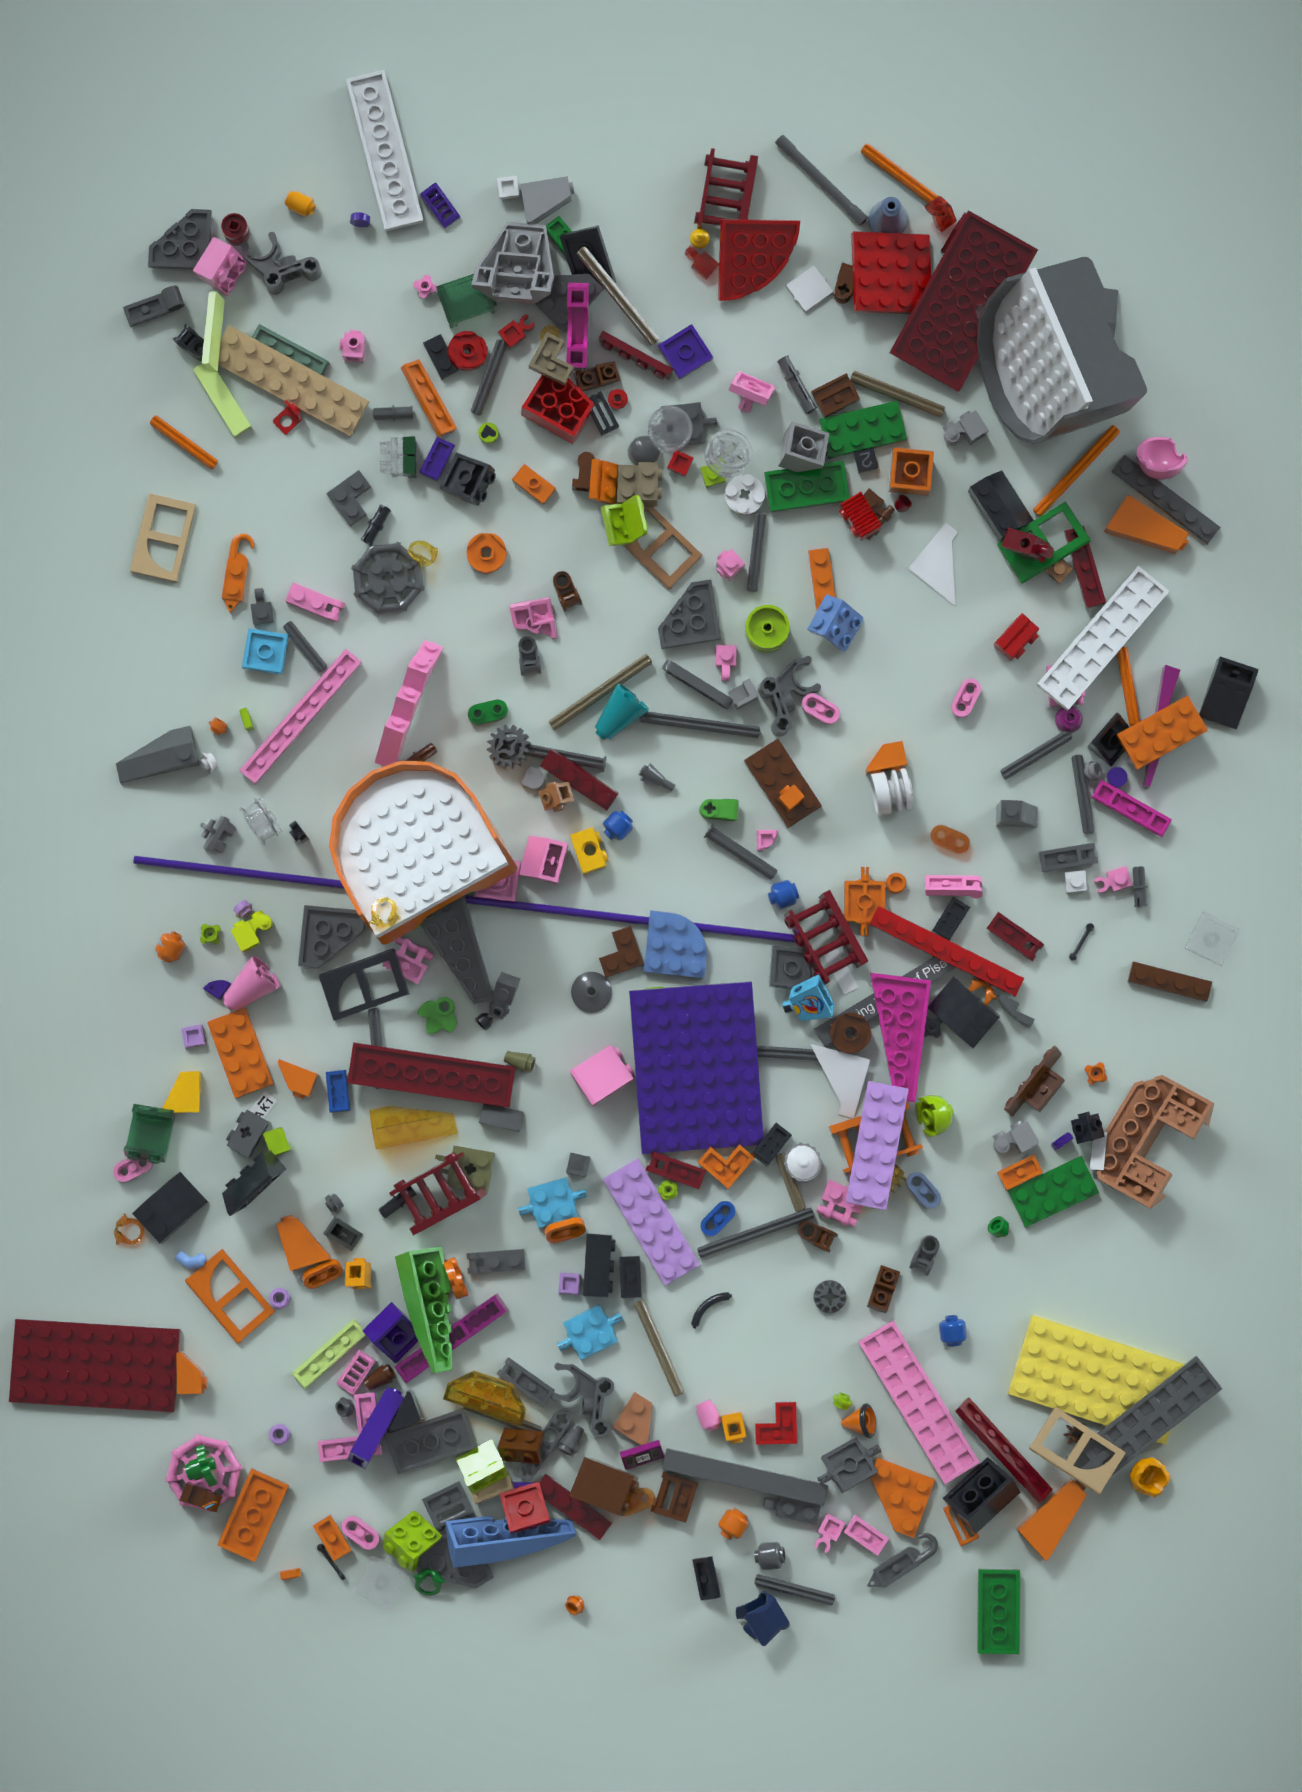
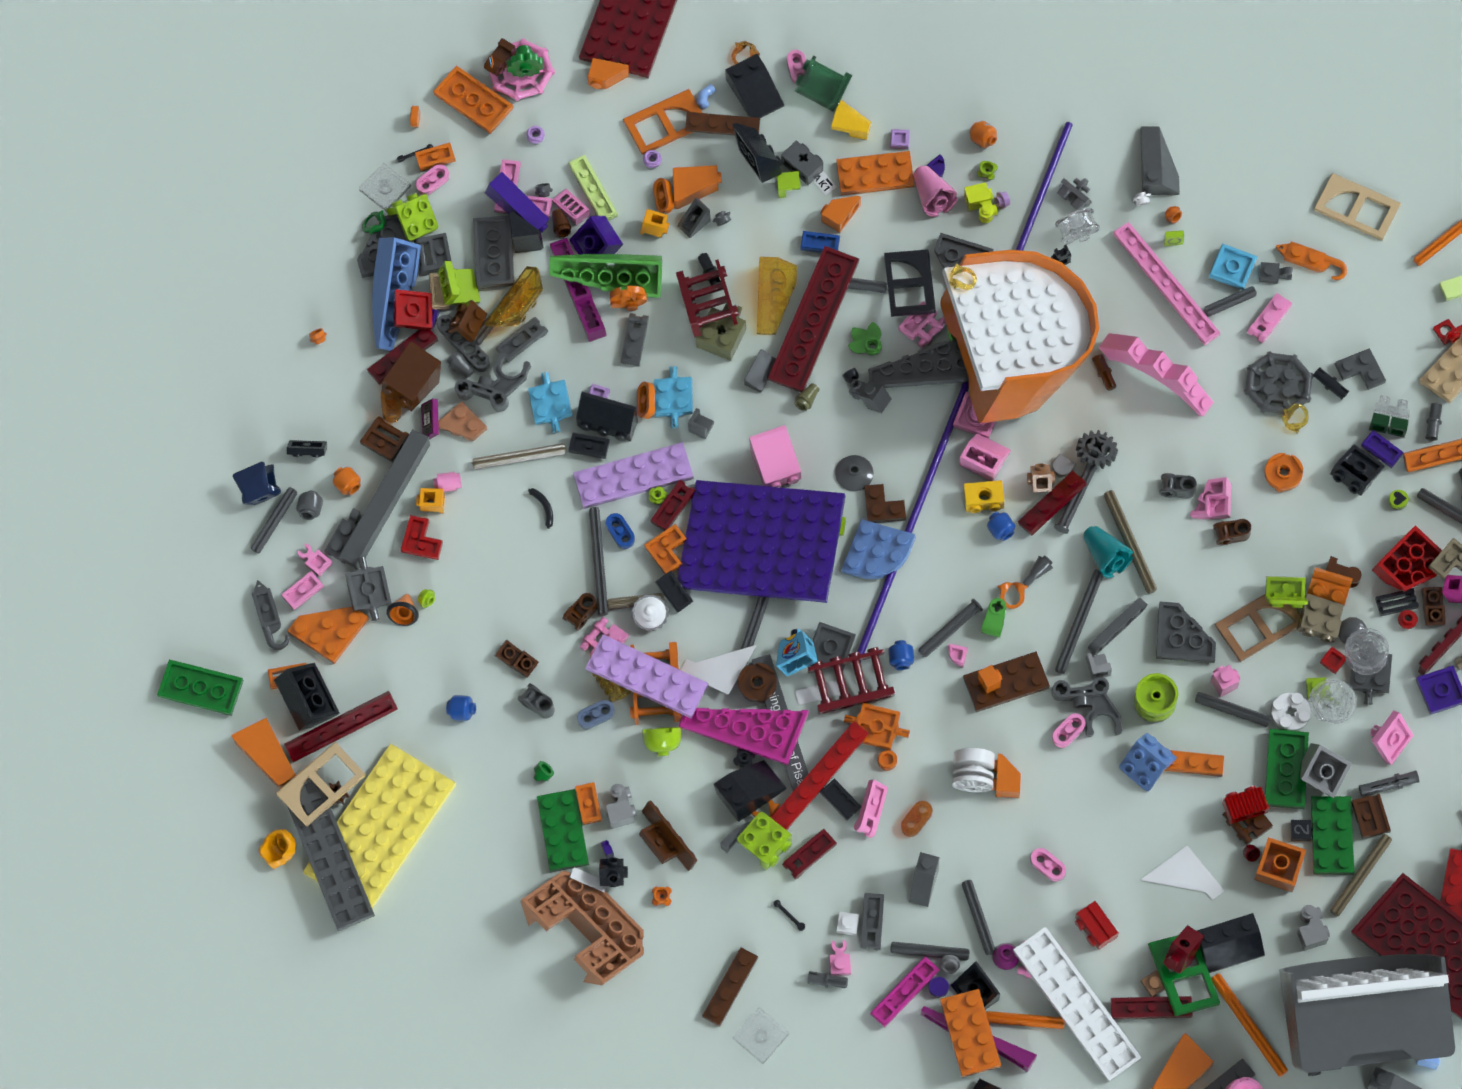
camera: 110 degrees right, 15 degrees down
(221, 1233) = (717, 123): none -> reddish brown plate
(487, 710) = (1133, 440): green plate -> none
(533, 484) = (1340, 528): orange plate -> none
(684, 807) = (1020, 588): none -> orange piece
(725, 658) = (1137, 658): bright pink plate -> none
(822, 1289) = (528, 617): dark grey gear -> none
(918, 1402) = (406, 663): bright pink plate -> none
(1015, 983) = (765, 839): none -> lime bracket

